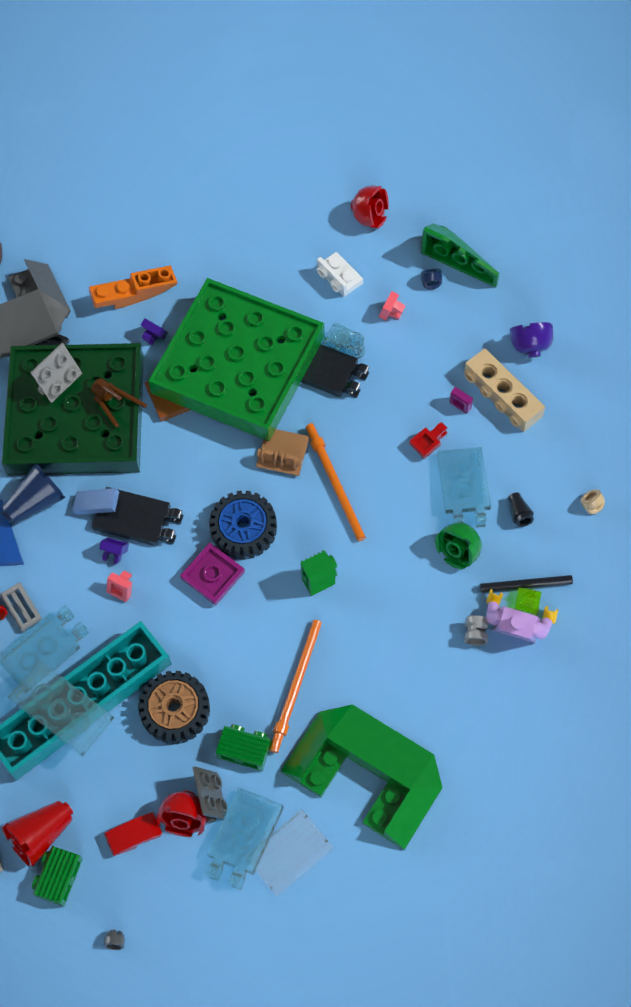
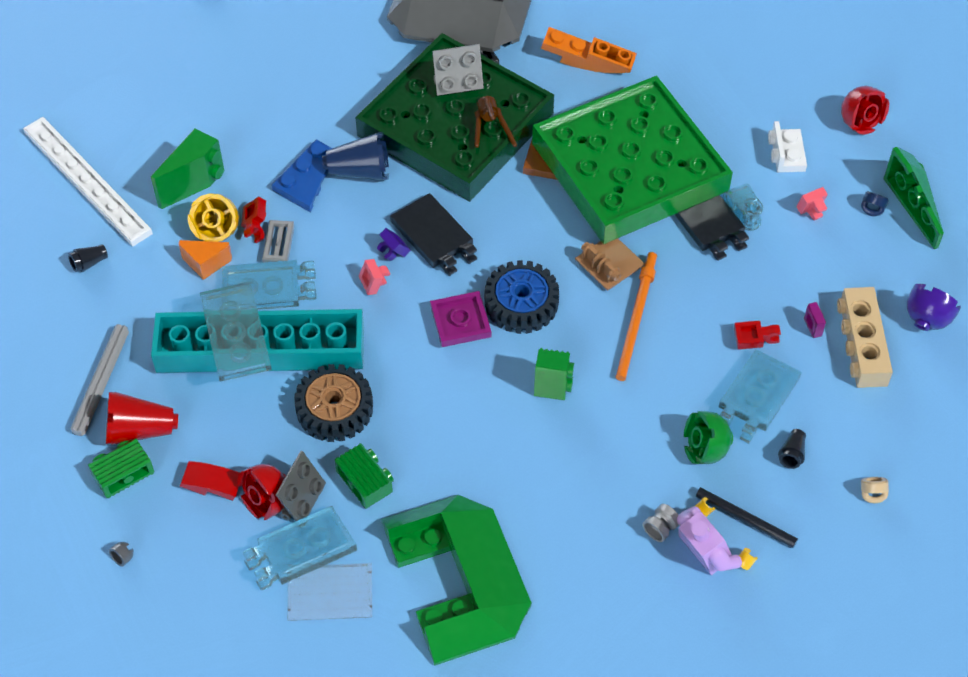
camera: 35 degrees right, 10 degrees down
(95, 501) = (410, 197): medium blue tile -> none
(152, 332) = (575, 96): dark purple tile -> none
(281, 727) = (413, 483): orange bar -> none
(528, 601) = (735, 533): clear neon green tile -> none

